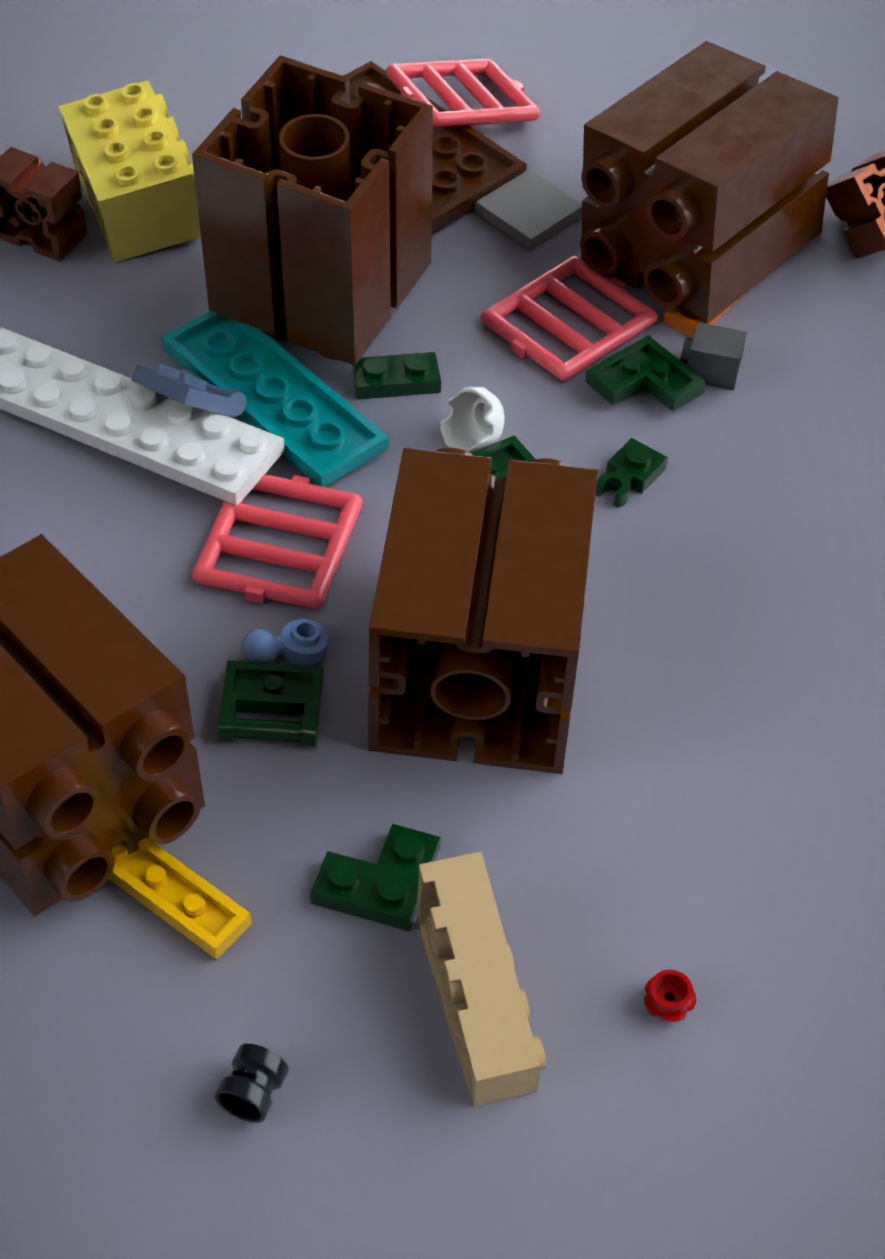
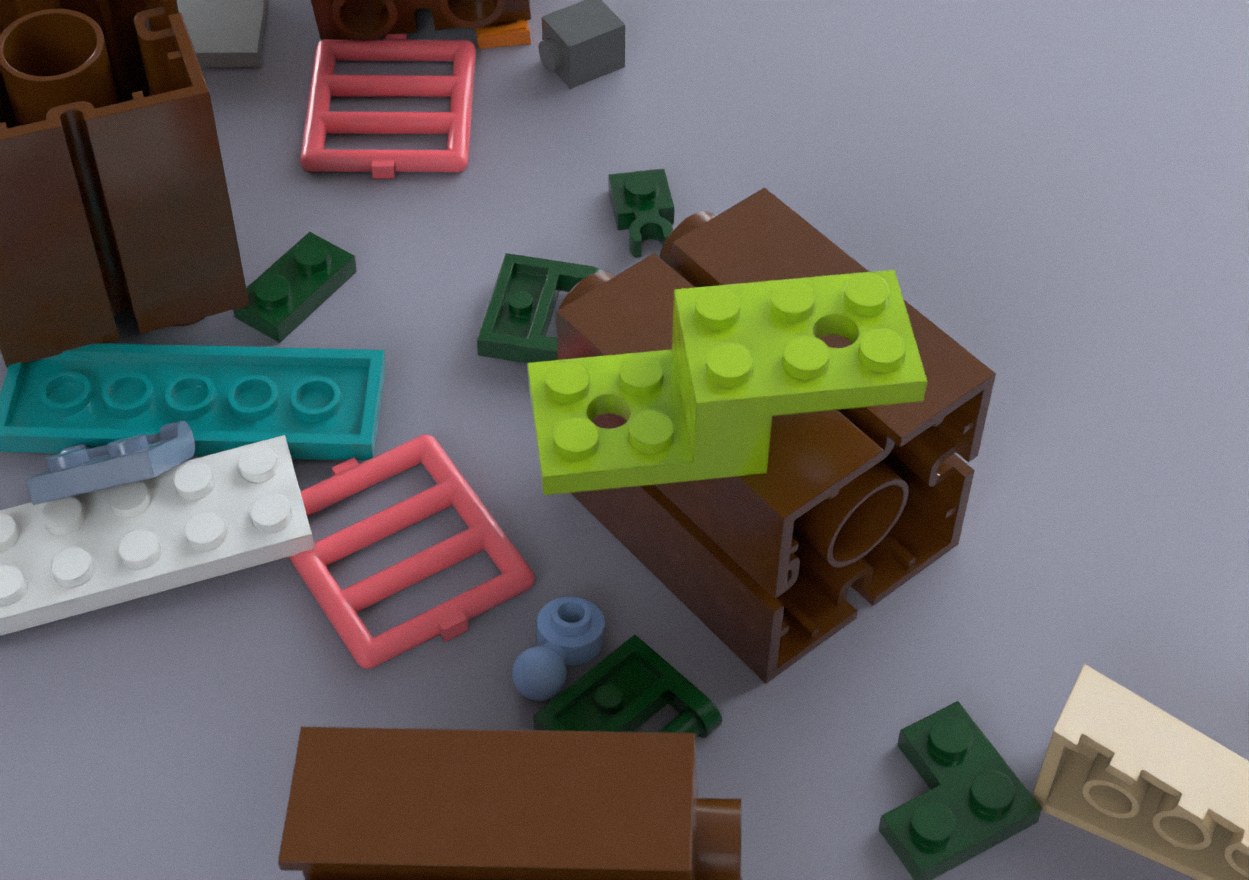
camera: 45 degrees left, 0 degrees up
(410, 532) = (730, 369): none -> lime bracket
(474, 420) = (449, 269): white hair -> none
(649, 367) = (536, 95): dark green plate -> none

